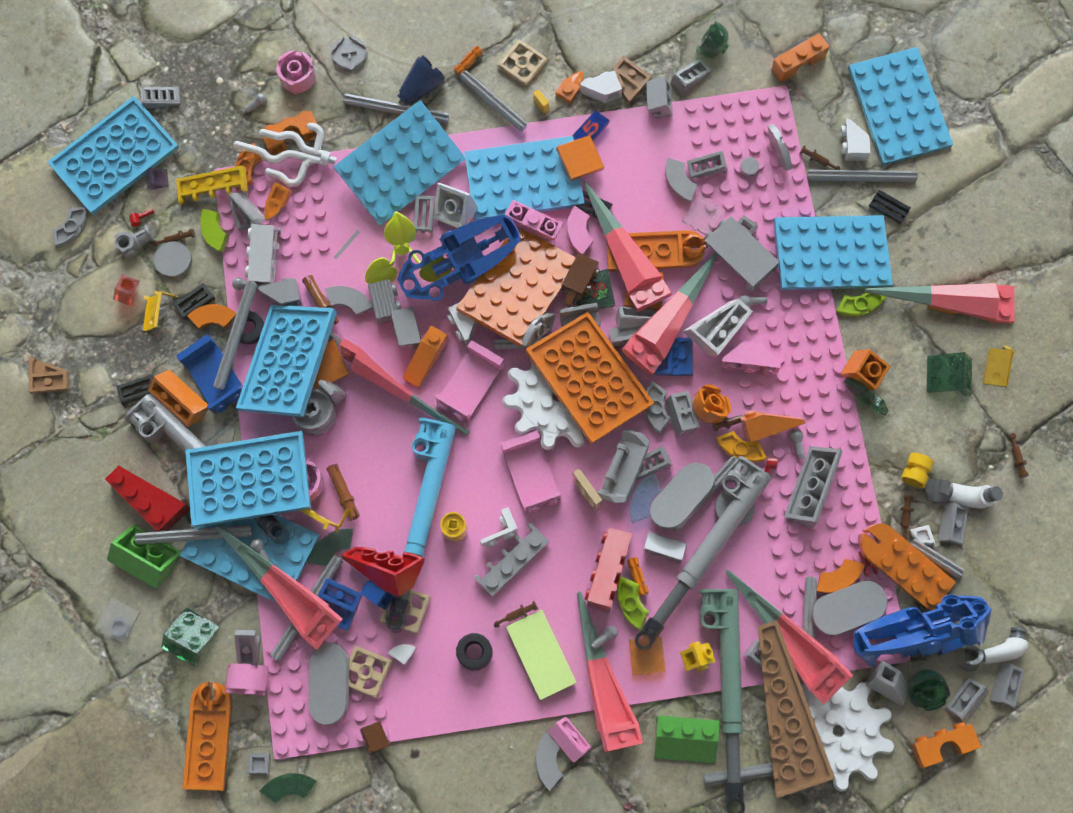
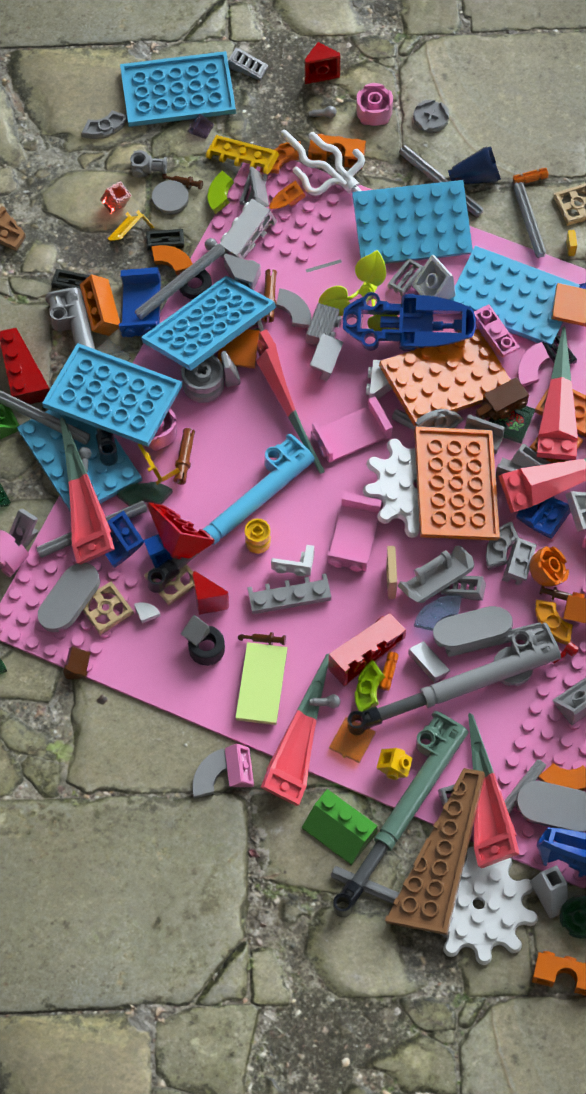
camera: 30 degrees right, 10 degrees down
(135, 217) = (161, 147): red hand -> none
(227, 60) = (321, 64): none -> red slope
(425, 356) = (329, 388): orange slope -> none
(448, 608) = (209, 595): none -> red slope
(459, 648) = (195, 630): none -> light grey slope

